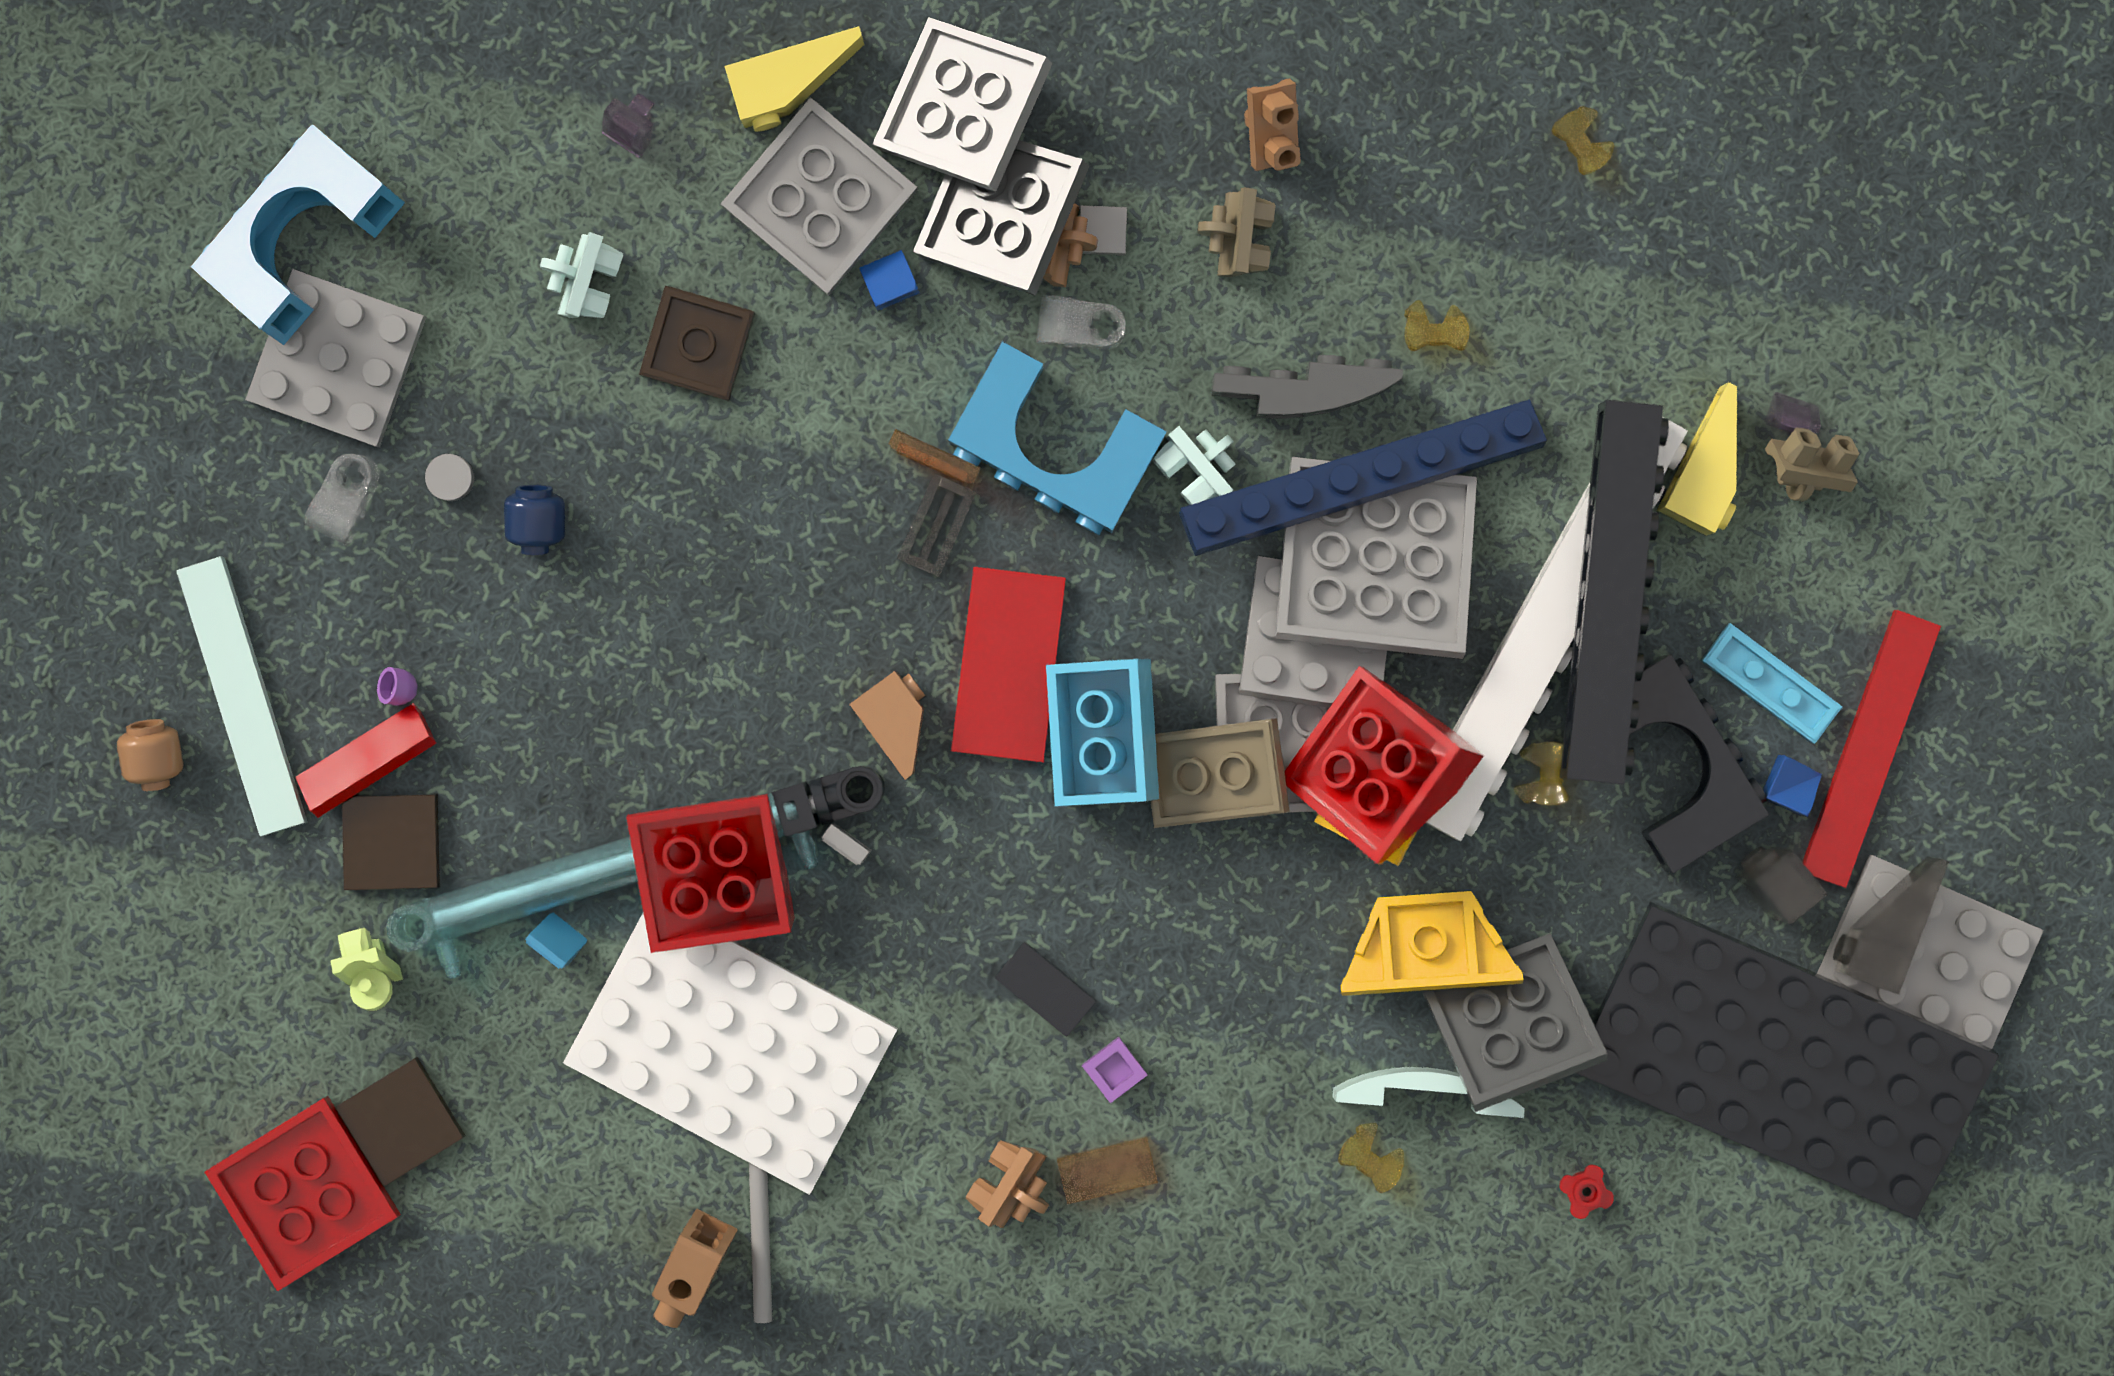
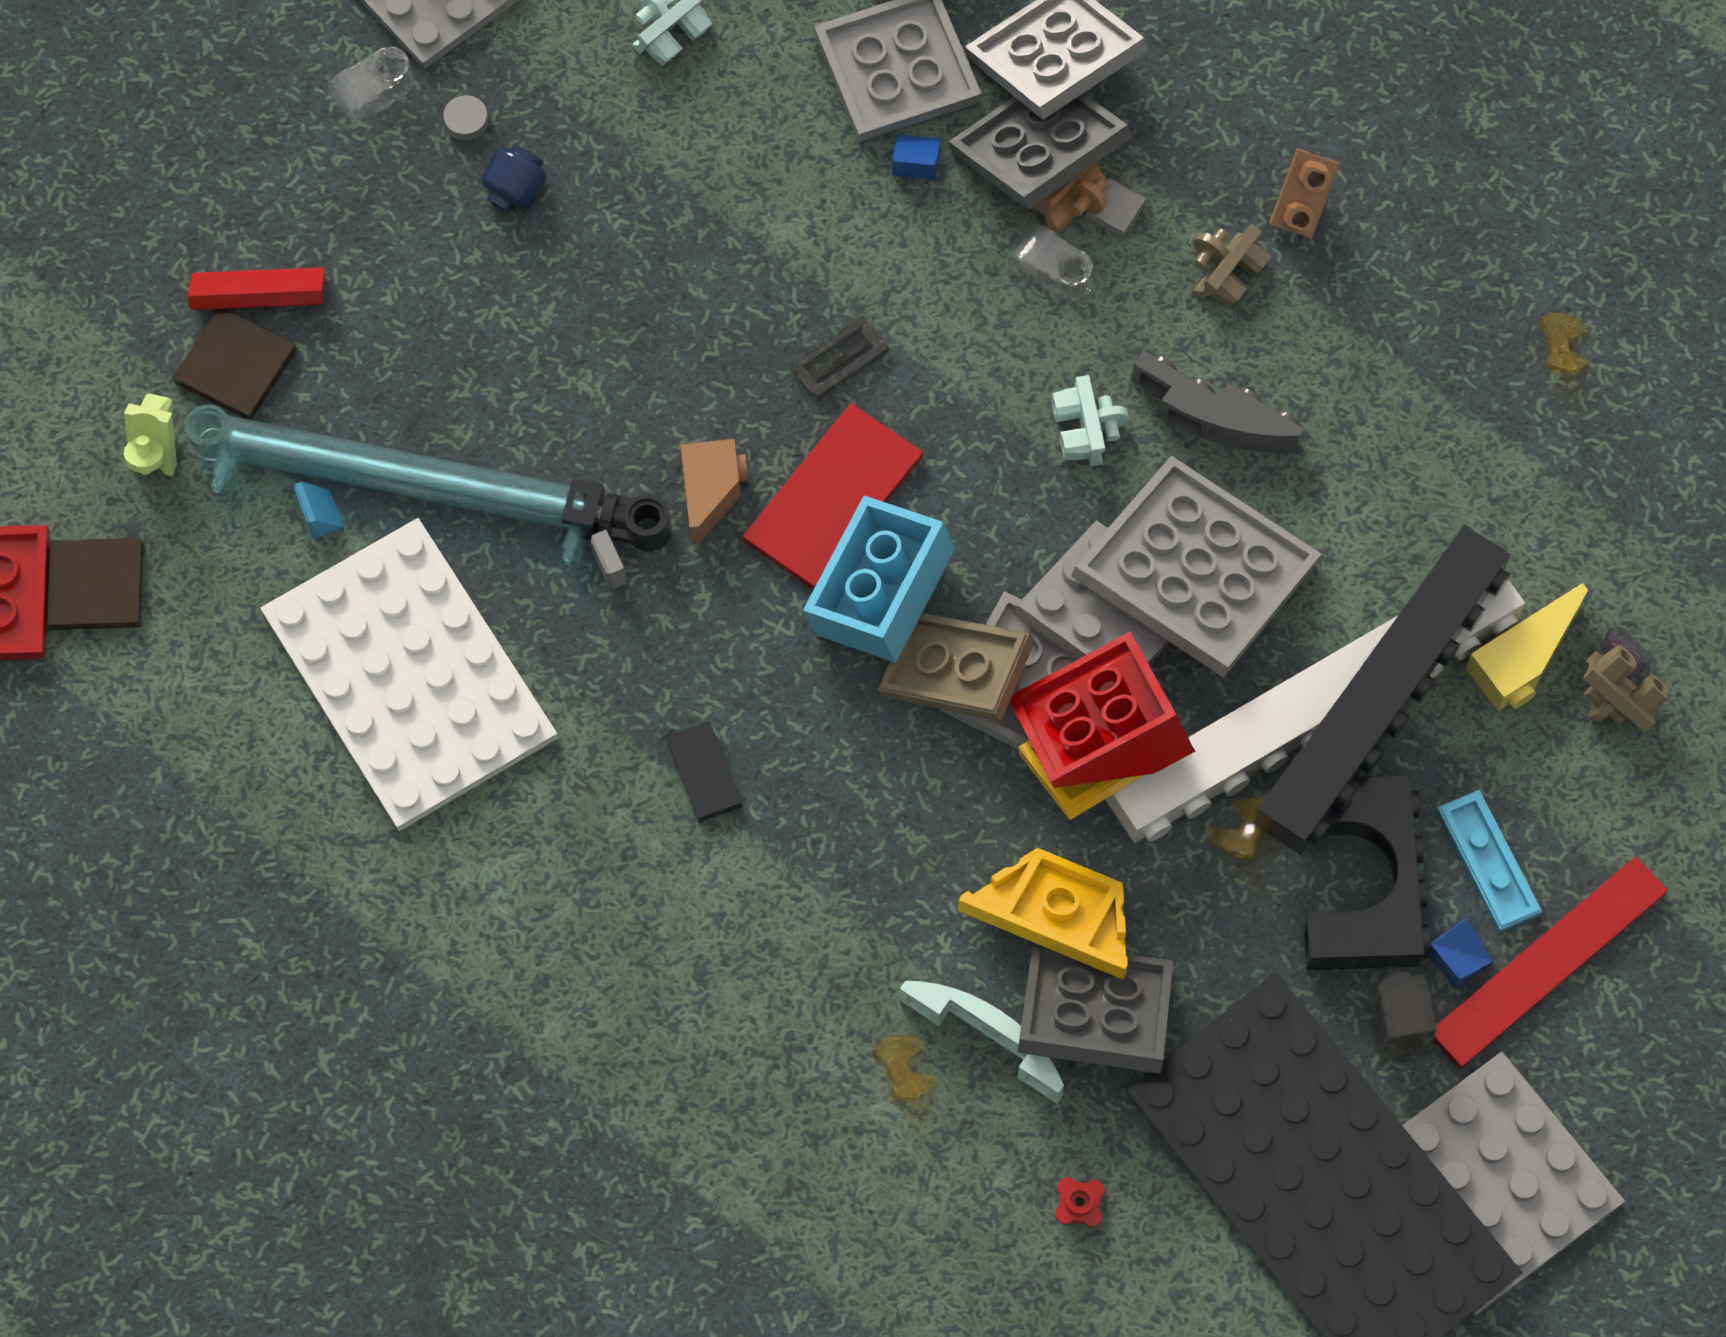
camera: 30 degrees right, 20 degrees down
(150, 754) = (89, 192): medium nougat head -> none
(241, 696) = (190, 193): light aqua tile -> none
(396, 686) = (319, 247): medium lavender hinge -> none
(691, 1267) = (258, 824): medium nougat torso -> none
(697, 343) = (729, 122): dark brown tile -> none
(710, 873) = (483, 509): red slope -> none
(760, 1245) = (328, 849): light grey bar -> none
(934, 458) = (870, 302): clear orange tile -> none
(989, 435) = (987, 396): dark azure arch -> none
(1017, 1190) = (573, 915): medium nougat hips -> none
(1107, 1170) = (664, 951): clear orange tile -> none
(1114, 1069) = (722, 867): medium lavender plate -> none
(1362, 477) = (1222, 498): dark blue plate -> none
(1419, 333) = (1338, 418): clear yellow piece -> none
(1887, 935) = (1477, 1109): clear smoke slope -> none

